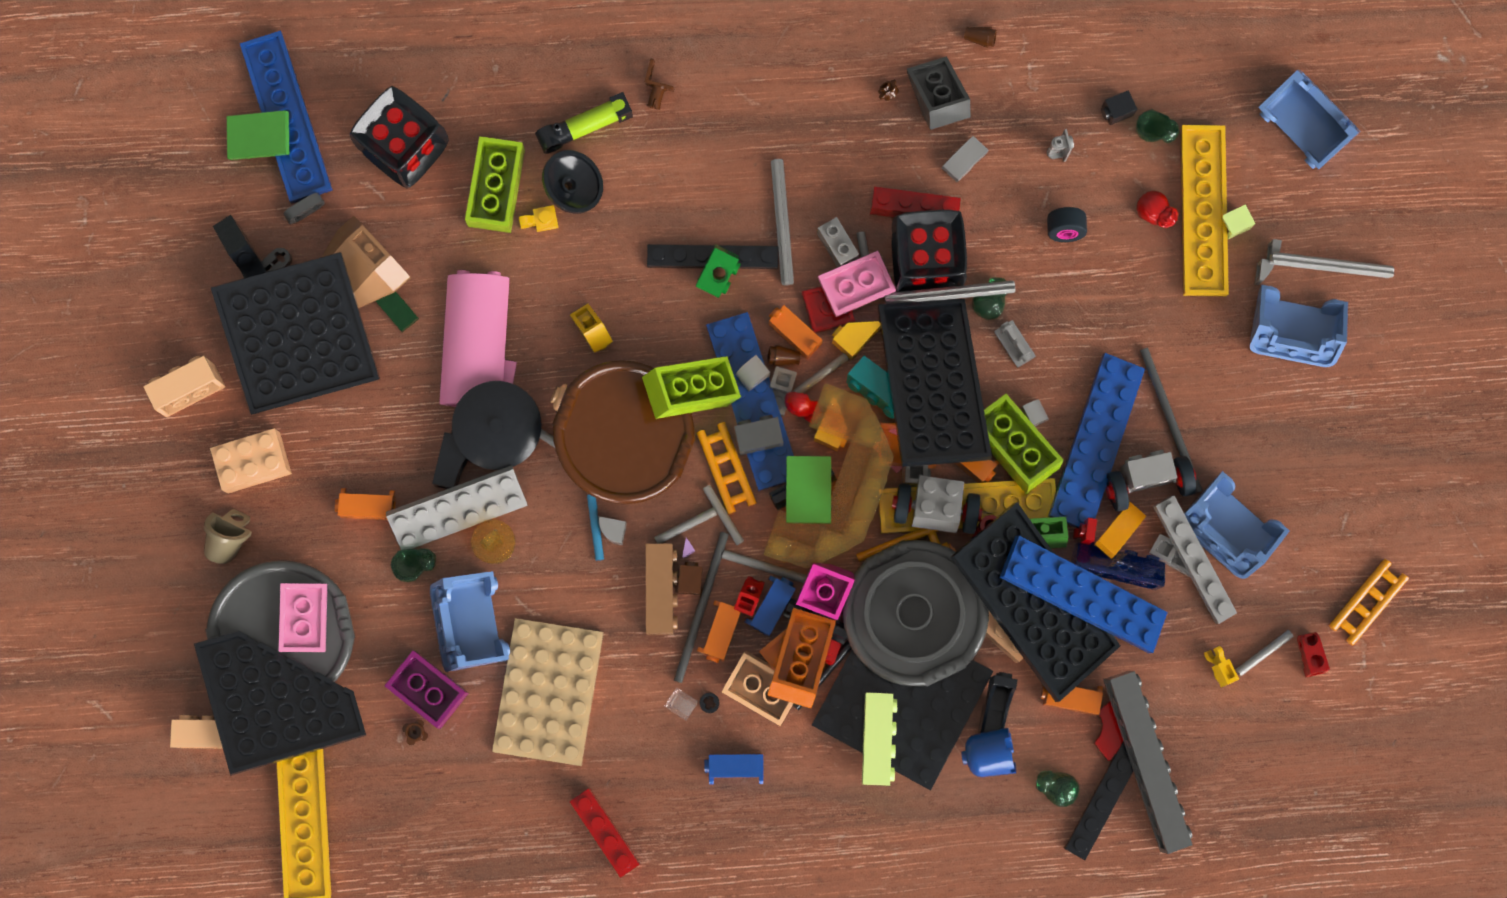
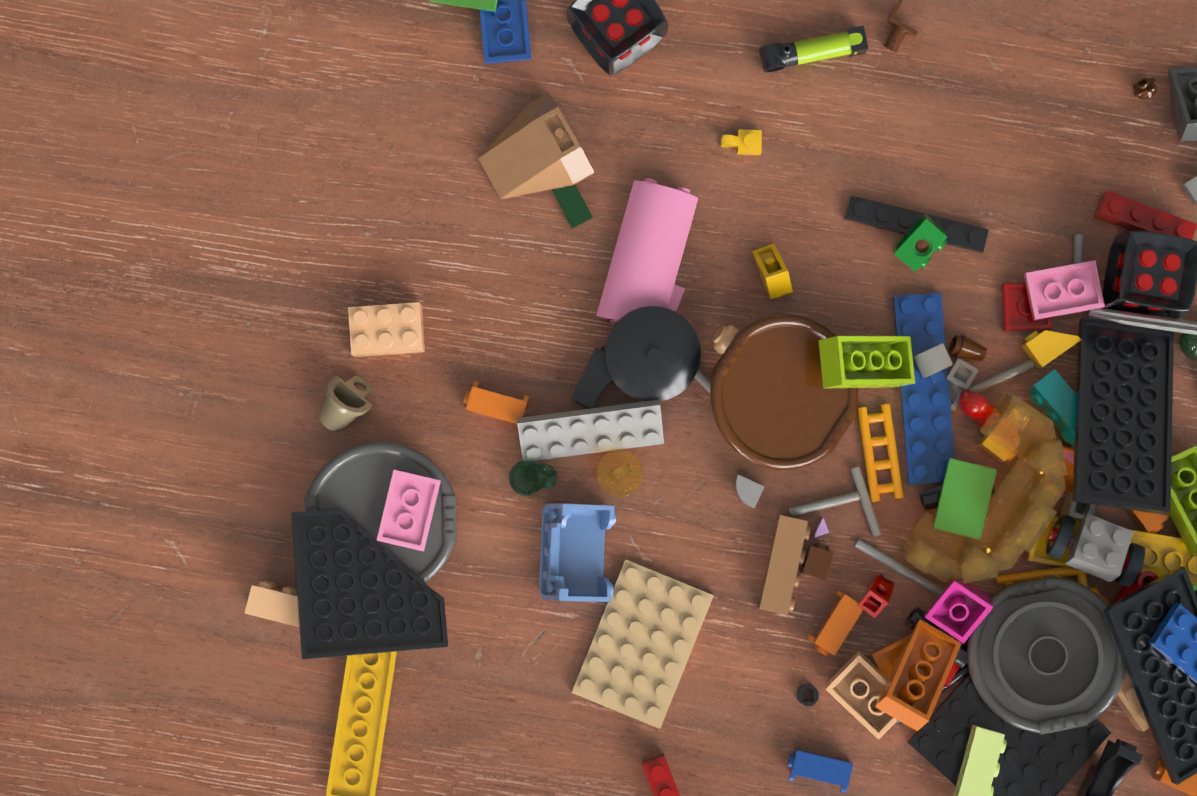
camera: 15 degrees right, 5 degrees up
(184, 386) = (334, 234): light nougat brick -> none
(239, 247) = (428, 118): black arch -> none
(272, 258) = (449, 121): dark grey beam -> none
(295, 333) = (463, 206): black plate -> none
(304, 208) = (497, 72): dark grey beam -> none
(411, 737) = (491, 648): reddish brown plate -> none
(426, 689) = (518, 613): magenta brick -> none
(495, 184) = (705, 94): lime brick -> none
(579, 175) = (797, 110): black dish -> none
(595, 528) = (729, 483): dark azure bar -> none
(681, 704) = (778, 689): clear brick -> none
(703, 600) = (821, 592): dark grey piece -> none
(758, 435) = (924, 428): dark grey brick -> none
(772, 606) = (897, 611): blue brick -> none
(782, 222) = (999, 204): light grey axle -> none
(794, 331) = (986, 325): orange brick -> none
(837, 242) = (1053, 242): light grey brick -> none

